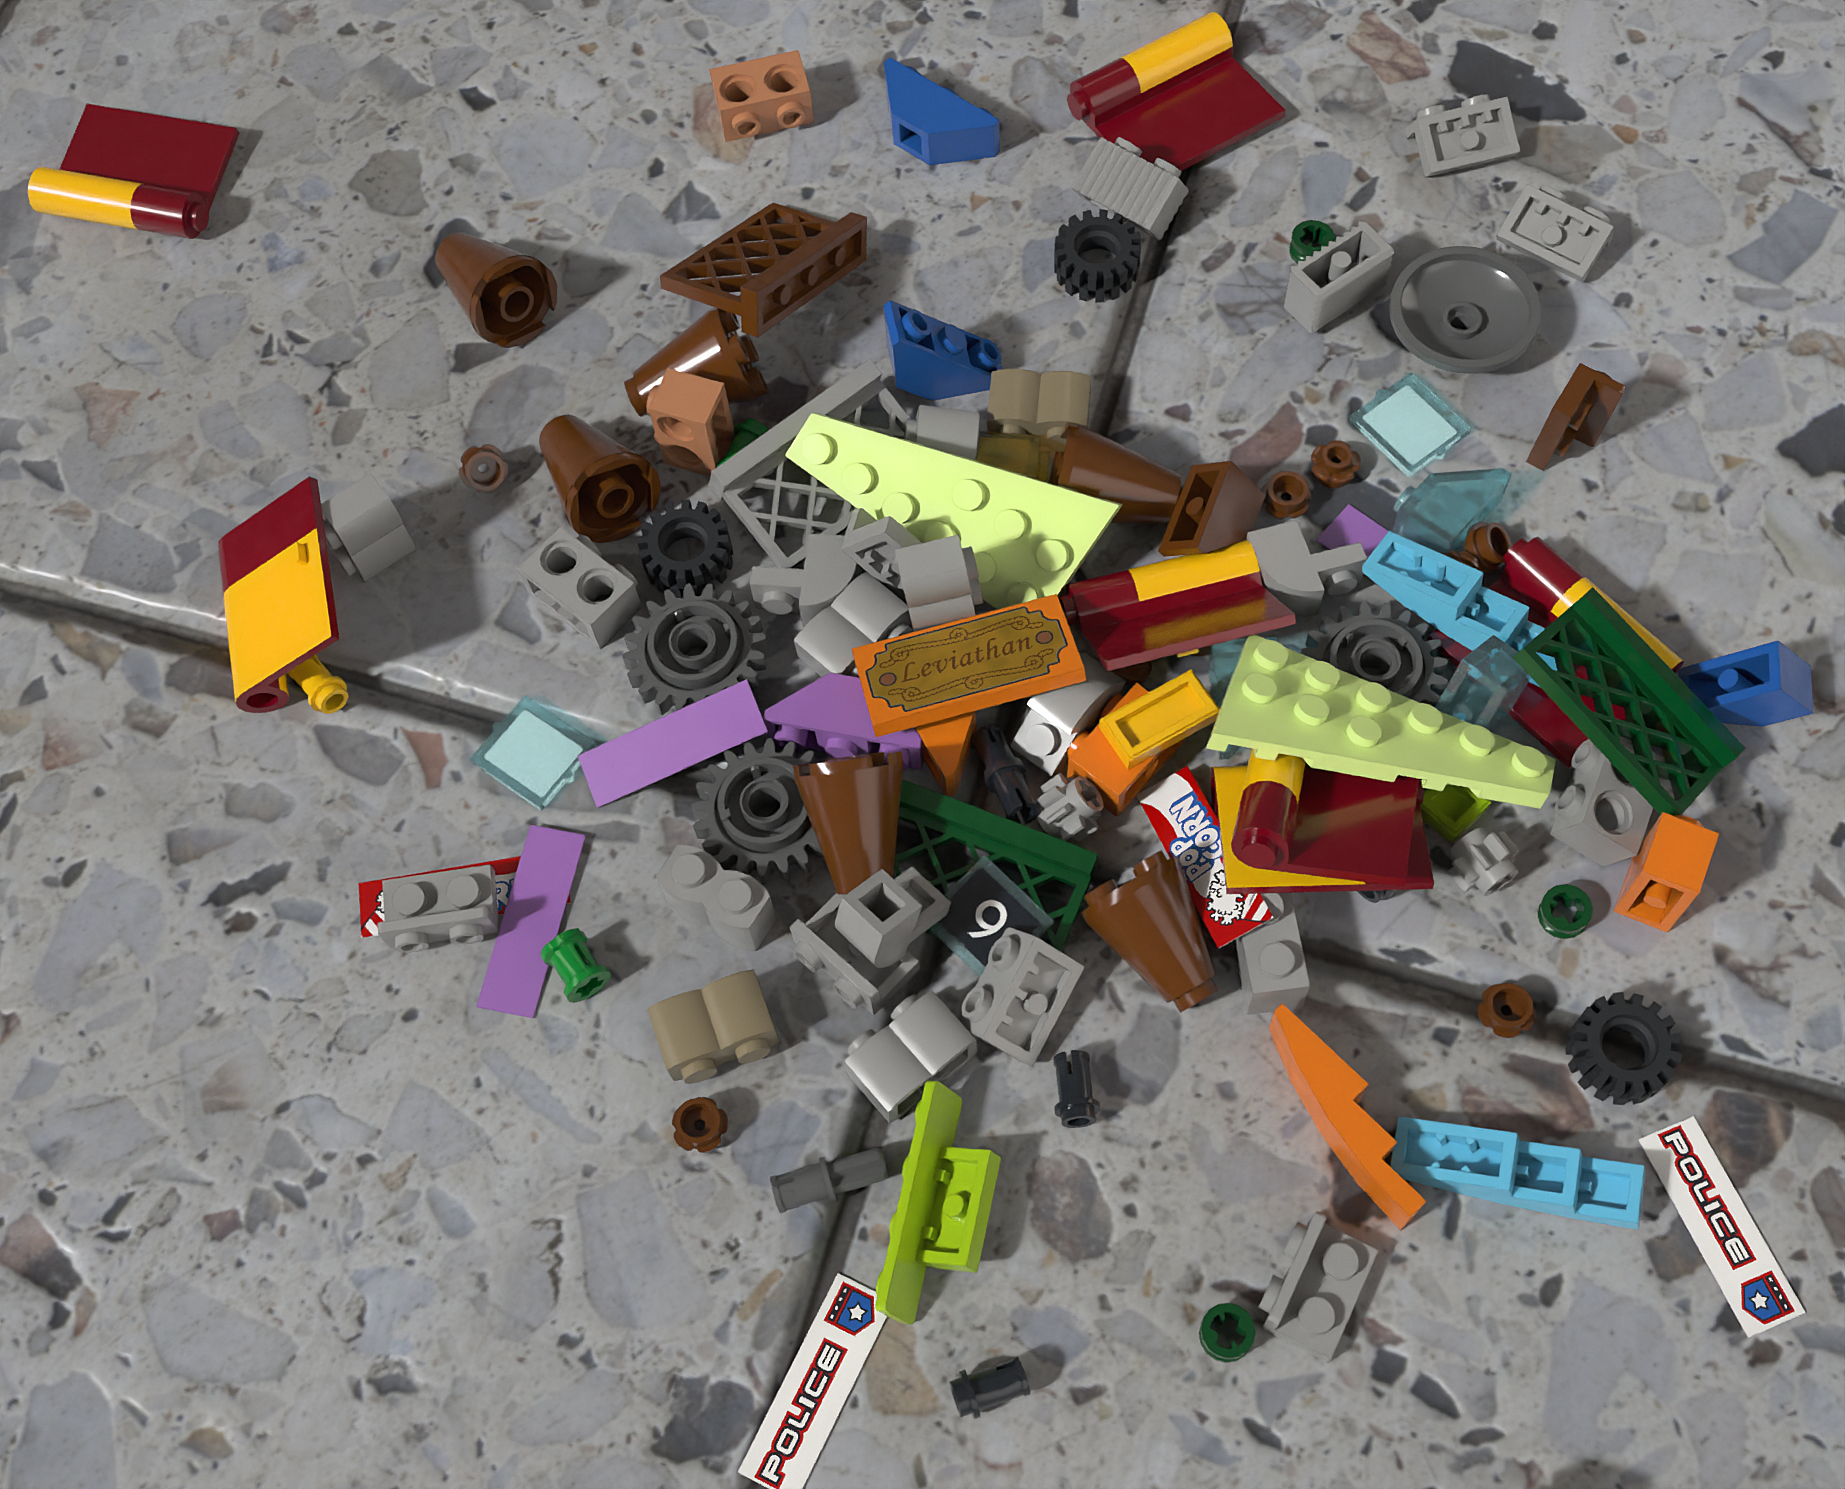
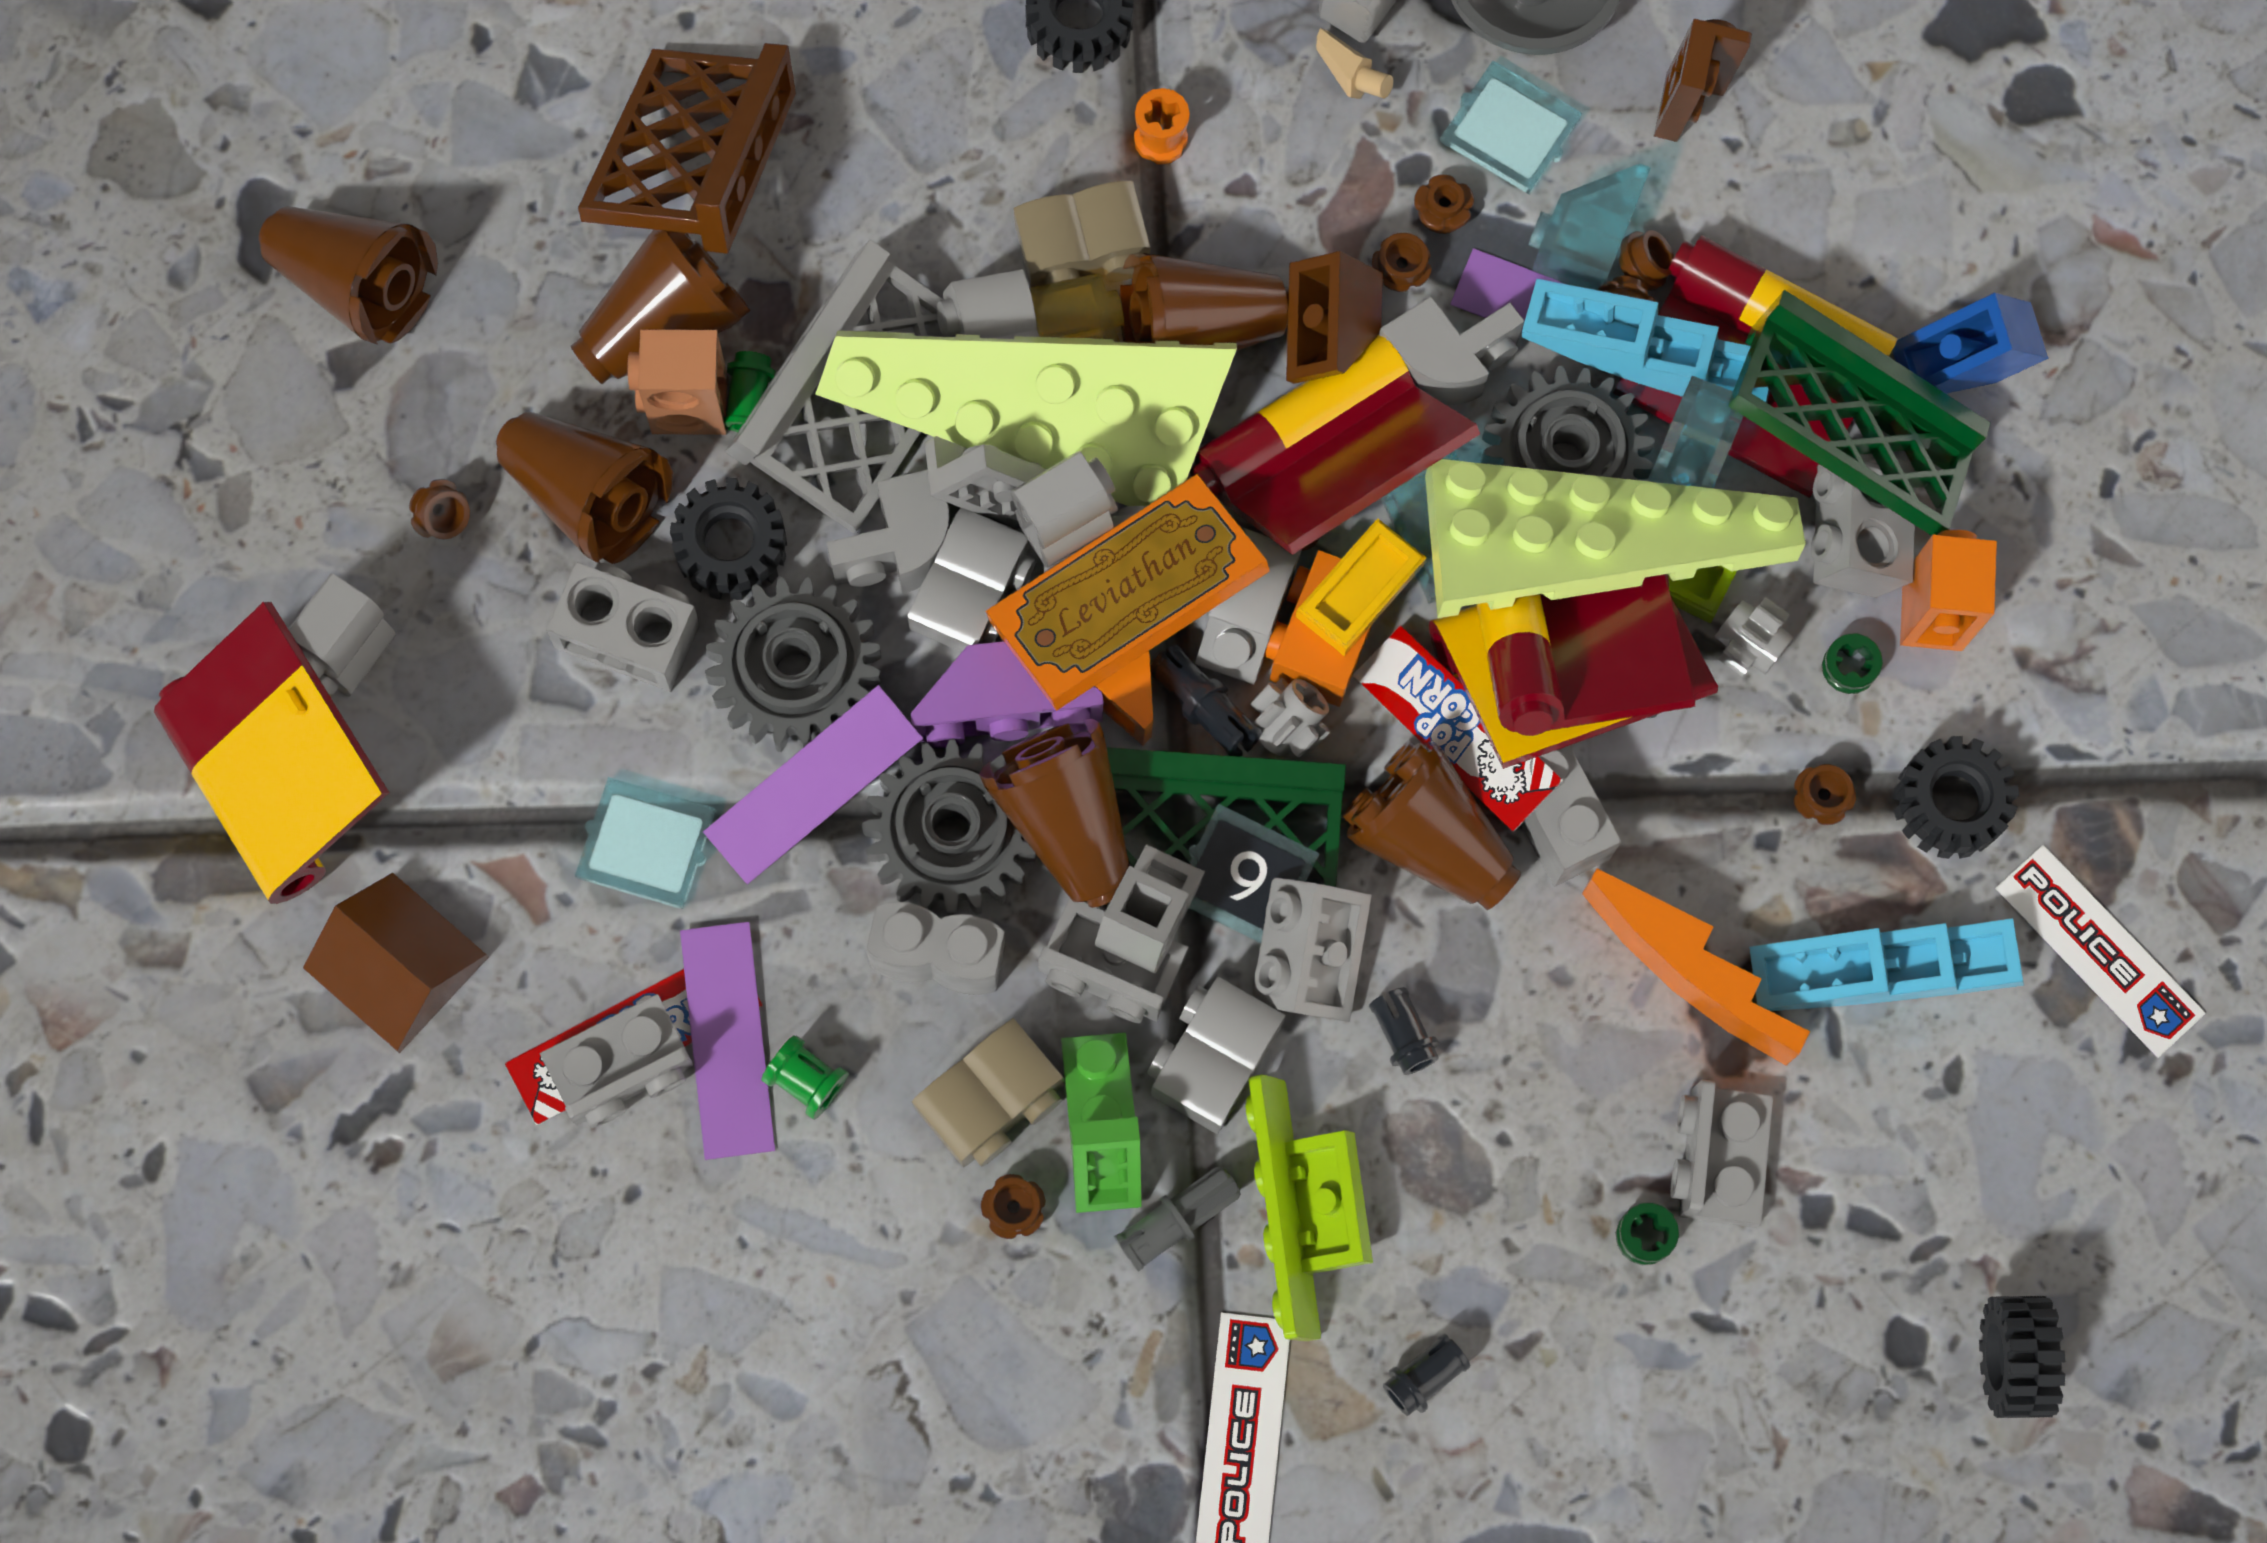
camera: 30 degrees left, 10 degrees up
(308, 776) = (392, 959): none -> reddish brown slope
(324, 691) = (366, 849): yellow pin -> none
(790, 1082) = (1102, 1123): none -> bright green bracket
(937, 356) = (942, 206): blue slope -> none
(1130, 343) = (1172, 112): none -> orange bush
(1296, 349) = (1352, 68): none -> tan bar

